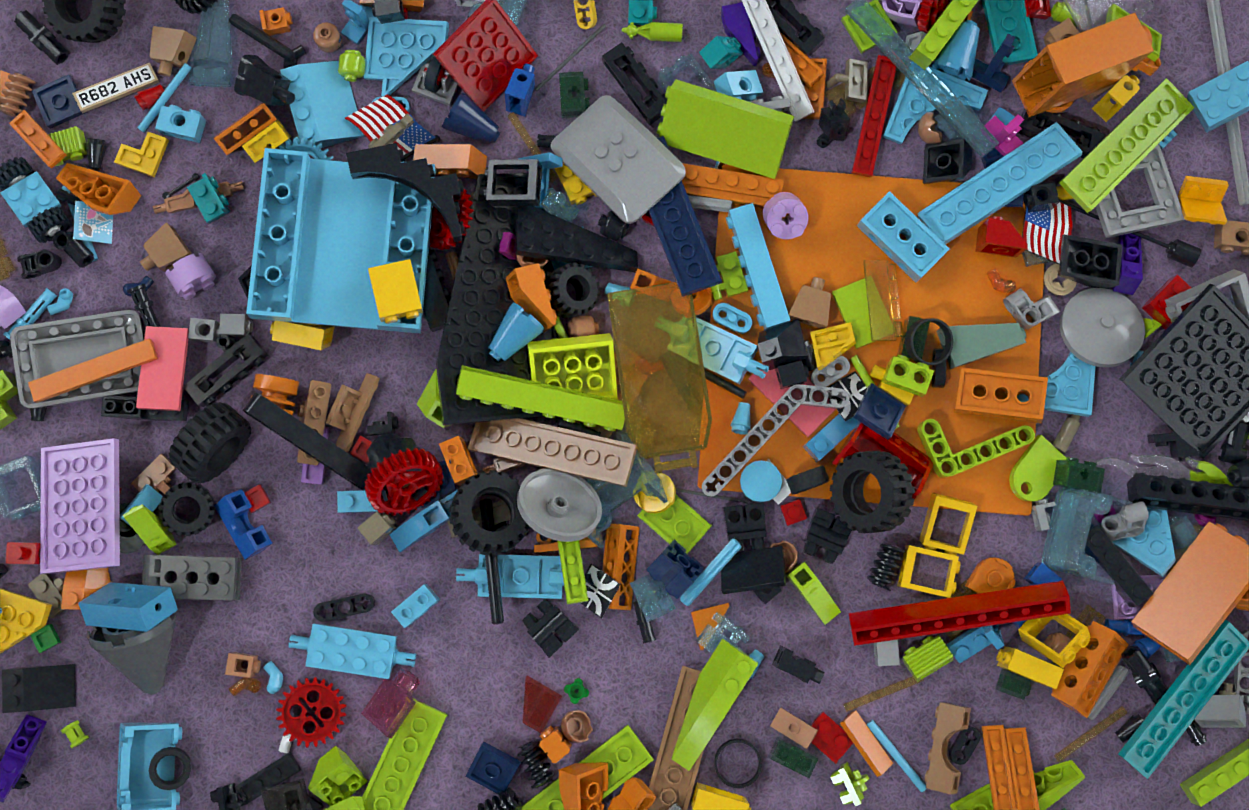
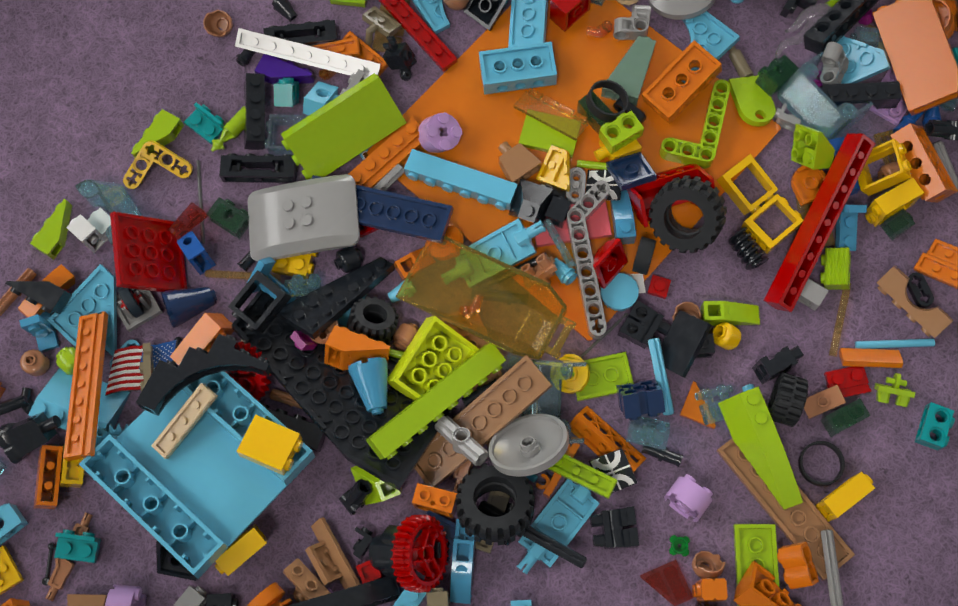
camera: 50 degrees left, 10 degrees down
(335, 98) = (86, 387): none -> orange plate
(365, 203) = (184, 421): none -> tan tile
(416, 392) = (356, 496): none -> black piece
(521, 456) = (468, 447): none -> light grey piece
(541, 62) = (187, 220): none -> clear red wing
(620, 671) = (689, 497): none -> lavender brick
(684, 37) = (254, 111): none -> black arch
(725, 401) = (544, 269): none -> nougat hips
(732, 276) = (459, 203): lime plate -> none
(733, 316) = (482, 223): medium azure plate -> none
(762, 397) = (559, 243): none -> clear light blue tile
(769, 696) = (788, 399): none -> black tyre
(777, 453) = (609, 261): none -> red slope
(790, 603) = (726, 336): none -> yellow head
(822, 535) = (692, 273): black hips -> none
(1025, 558) = (811, 148): none -> lime slope

